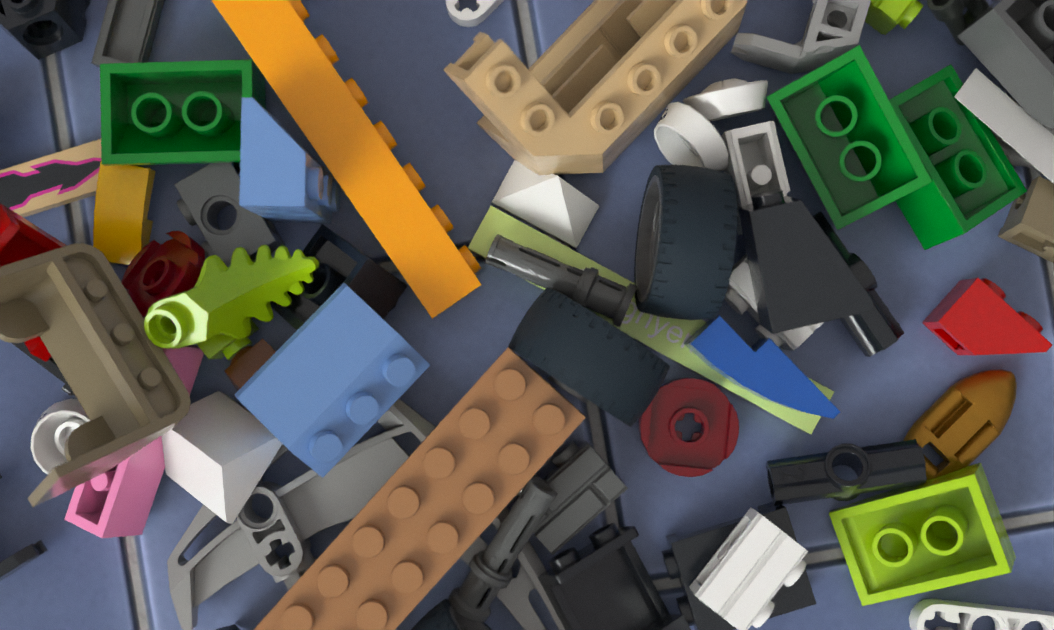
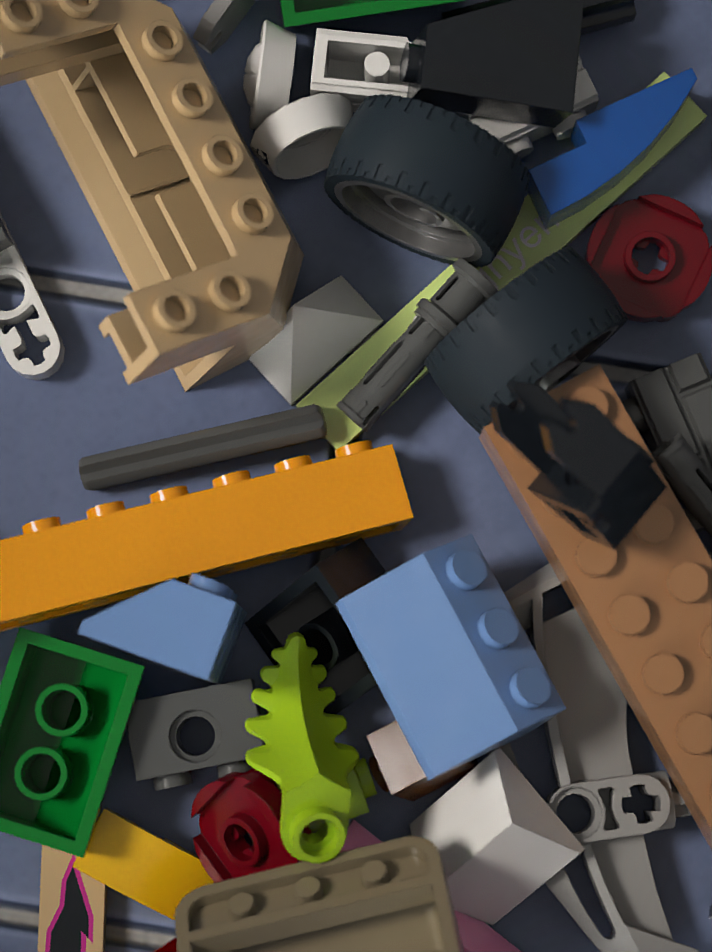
camera: 70 degrees left, 5 degrees down
(436, 149) = (203, 447): none -> dark grey axle
(494, 431) = (584, 462): none -> black piece

